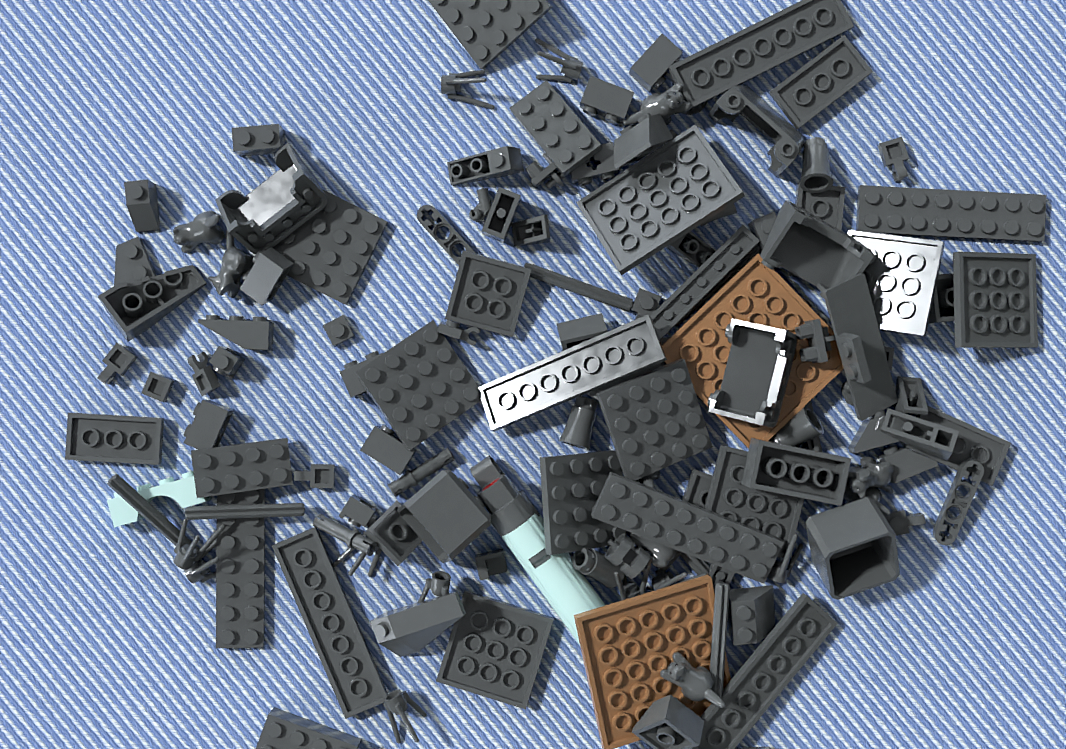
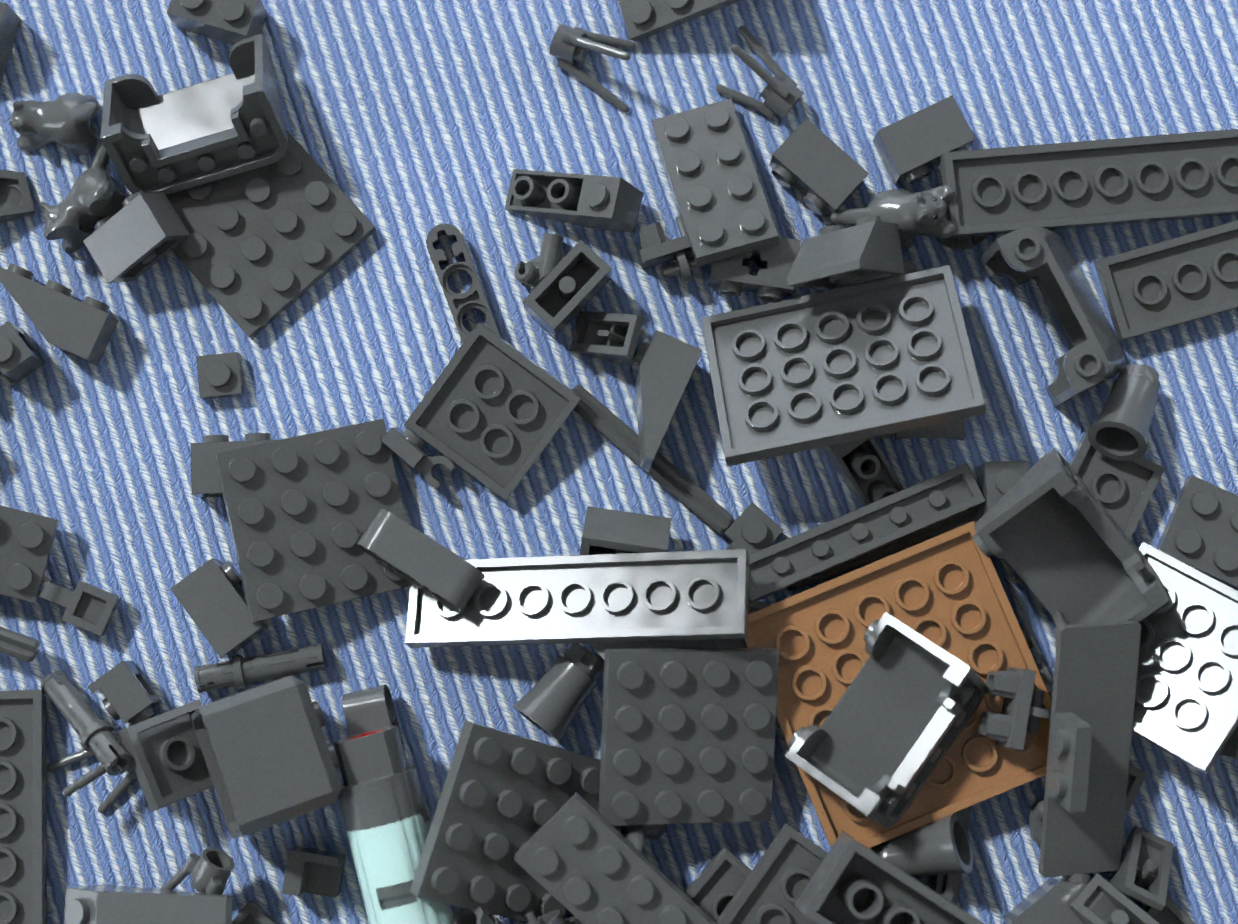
camera: 20 degrees right, 5 degrees down
(482, 385) = (420, 560): none -> dark grey beam
(569, 247) = (660, 385): none -> dark grey slope

